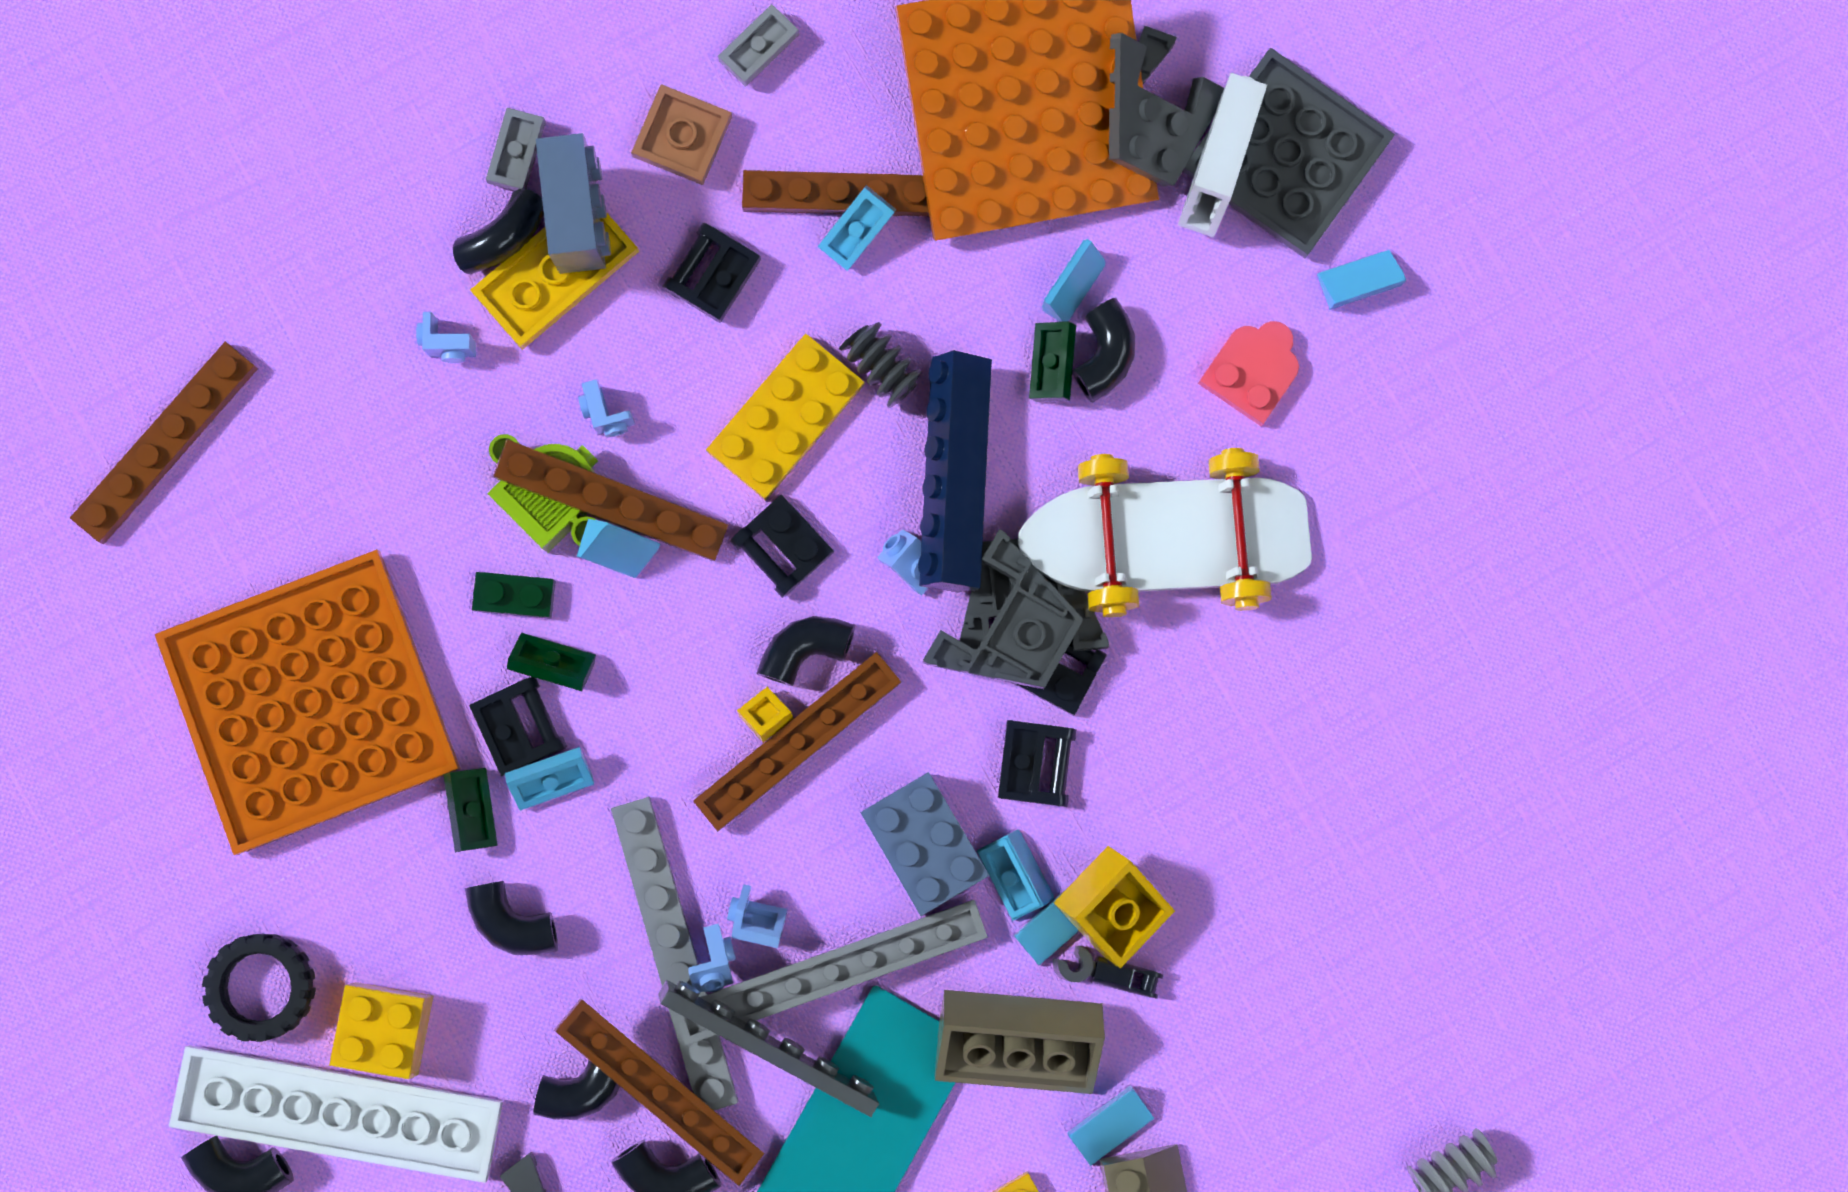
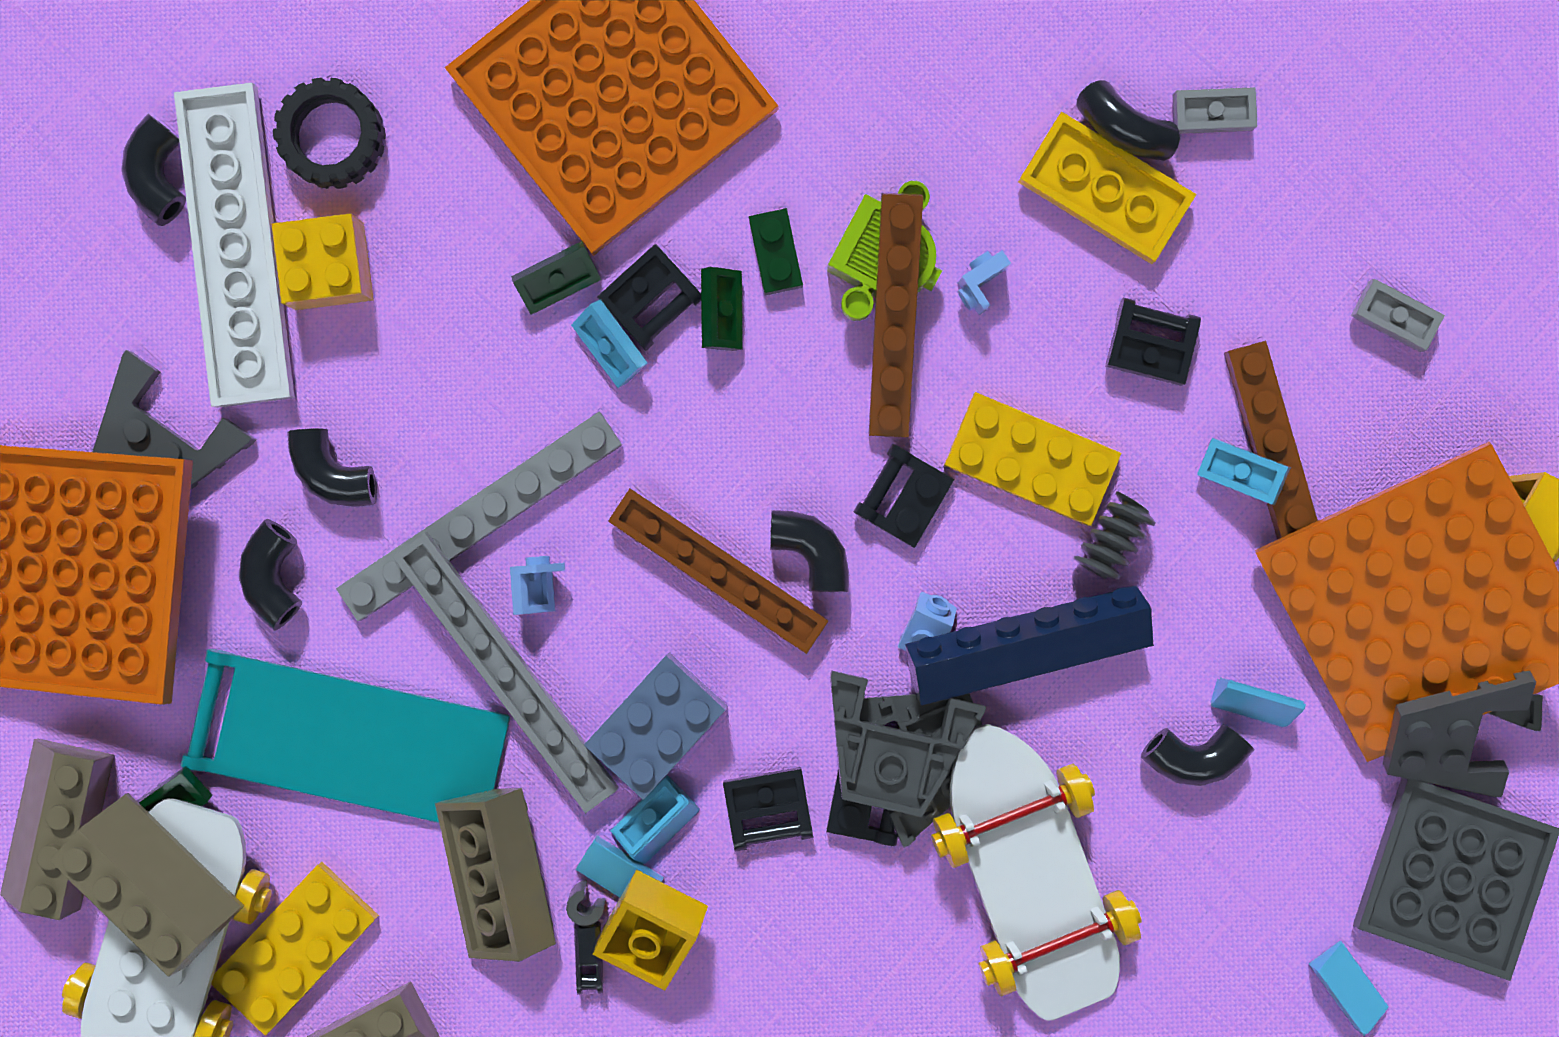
camera: 85 degrees right, 5 degrees up
(450, 347) = (998, 109): light blue bracket -> none
(506, 928) = (454, 350): black cylinder -> none
(572, 203) = (1181, 182): sand blue brick -> none
(616, 548) = (850, 336): medium azure slope -> none
(659, 1091) = (341, 544): dark orange plate -> none
(681, 134) = (1282, 268): nougat plate -> none
(717, 973) = (470, 565): light blue bracket -> none
(755, 1039) = (415, 625): dark grey plate -> none
(765, 714) = (734, 531): yellow plate -> none
(1052, 361) = (1169, 705): dark green plate -> none
(1110, 1125) = (444, 983): medium azure slope -> none
(1222, 155) = (1435, 817): white slope -> none
(1253, 369) = (1223, 906): coral plate -> none

